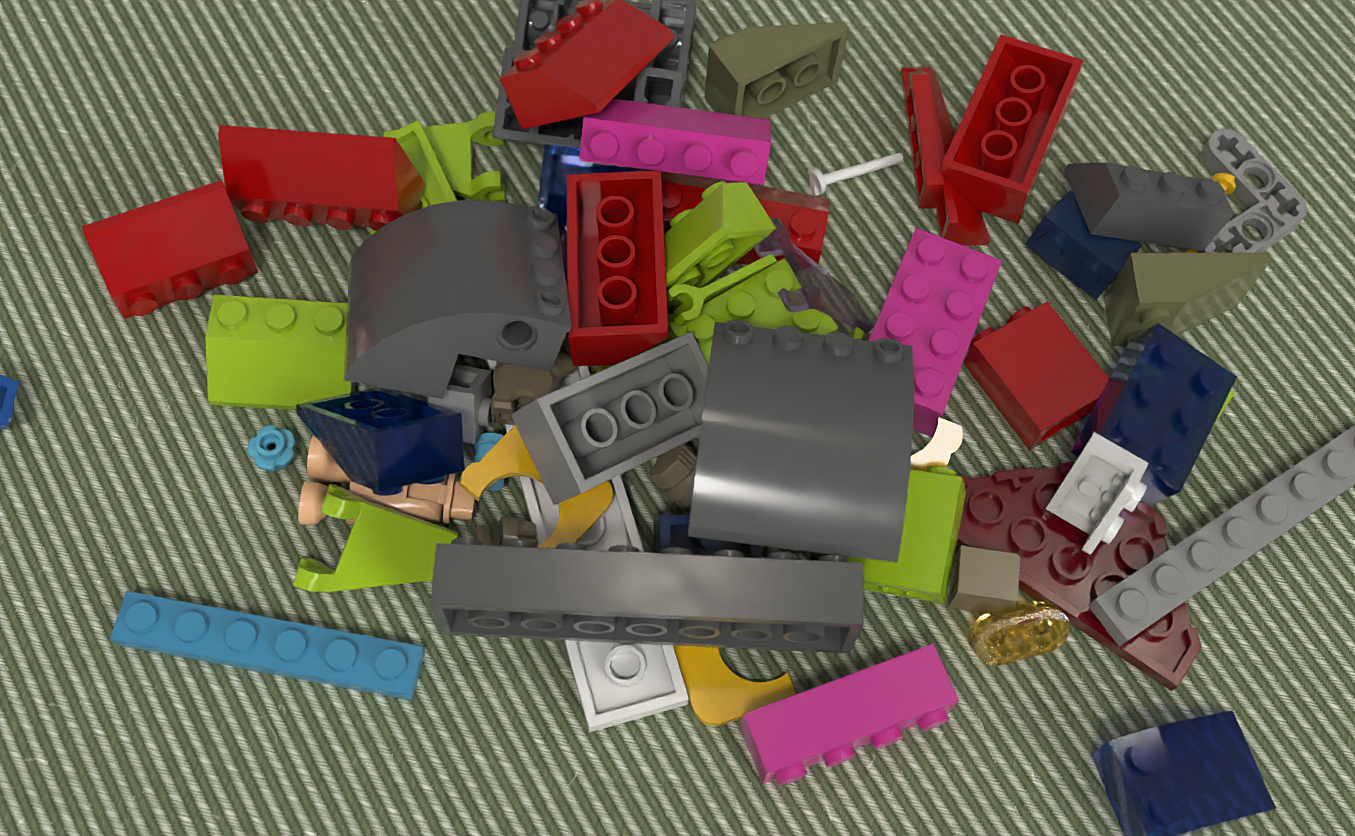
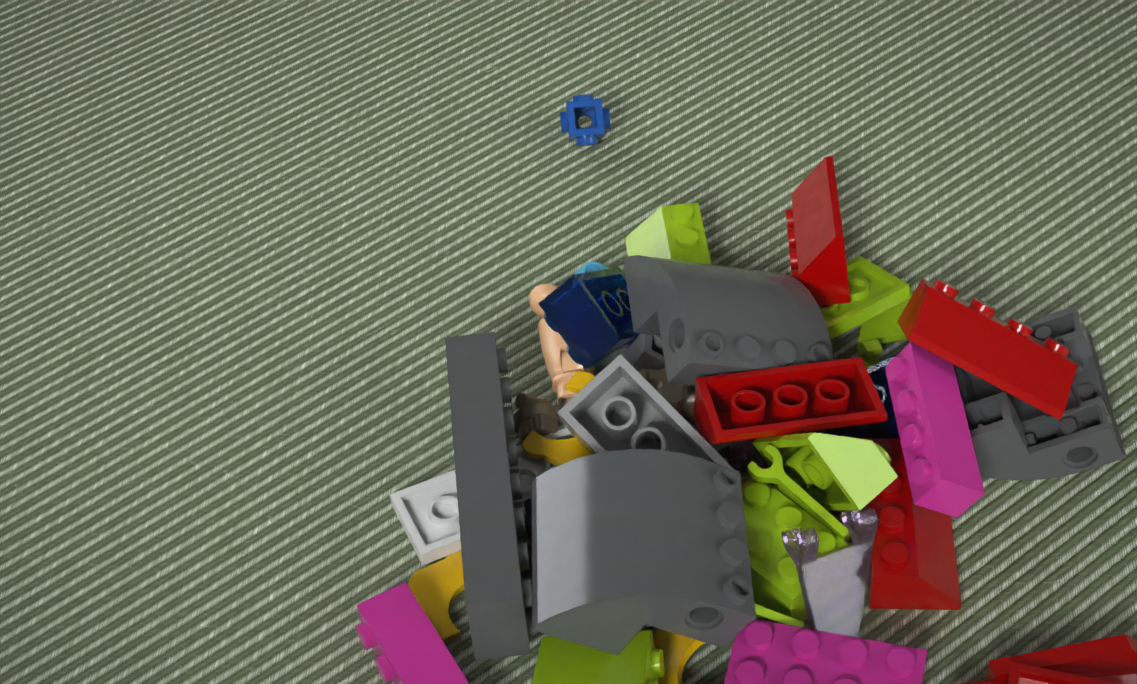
camera: 90 degrees right, 20 degrees down
(170, 250) = (735, 179): red slope -> none
(268, 645) = (435, 314): dark azure plate -> none
(380, 548) = (522, 341): lime flag -> none
(772, 67) = (1072, 516): olive slope -> none
(818, 181) = (976, 590): white piece -> none

